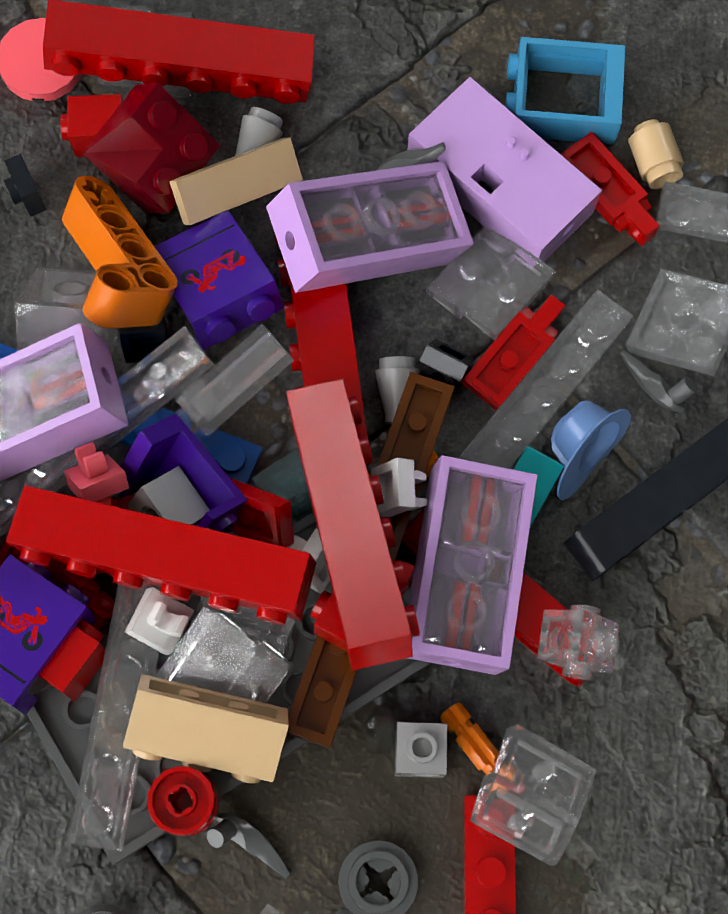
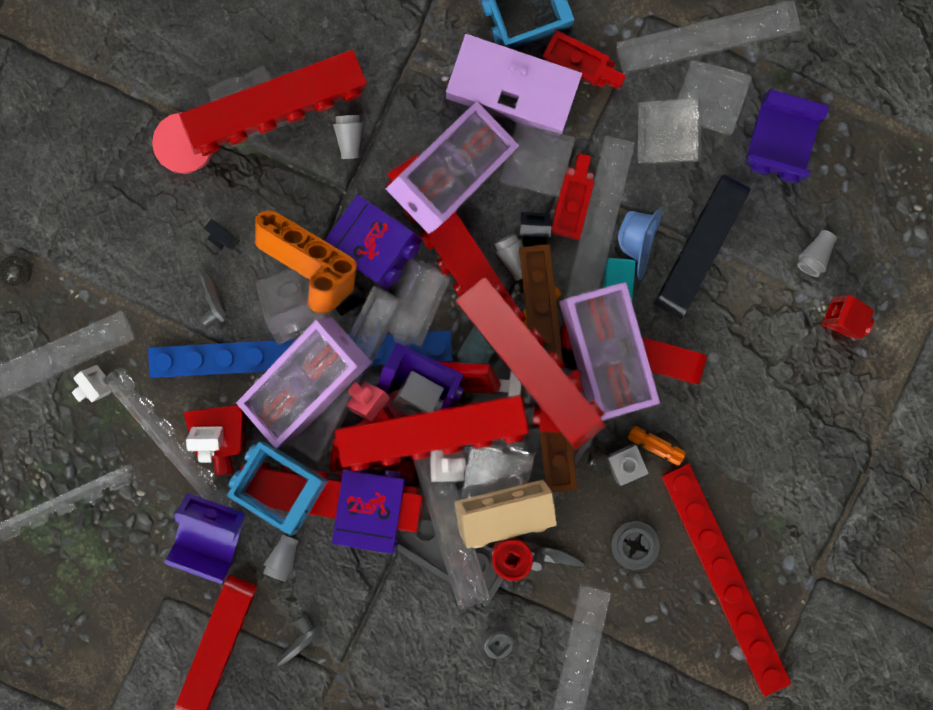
camera: 25 degrees left, 15 degrees up
(86, 118) = (243, 173): red brick -> none
(148, 145) = (290, 177): dark red slope -> none
(235, 181) = (352, 171): tan tile -> none
(398, 486) = (547, 325): white tile -> none
(414, 157) = (453, 109): dark grey bar -> none
(533, 795) = (701, 459): clear slope -> none
(579, 641) = (691, 366): clear brick -> none
(656, 153) = (603, 24): tan brick -> none
(657, 388) = (668, 180): dark grey bar -> none

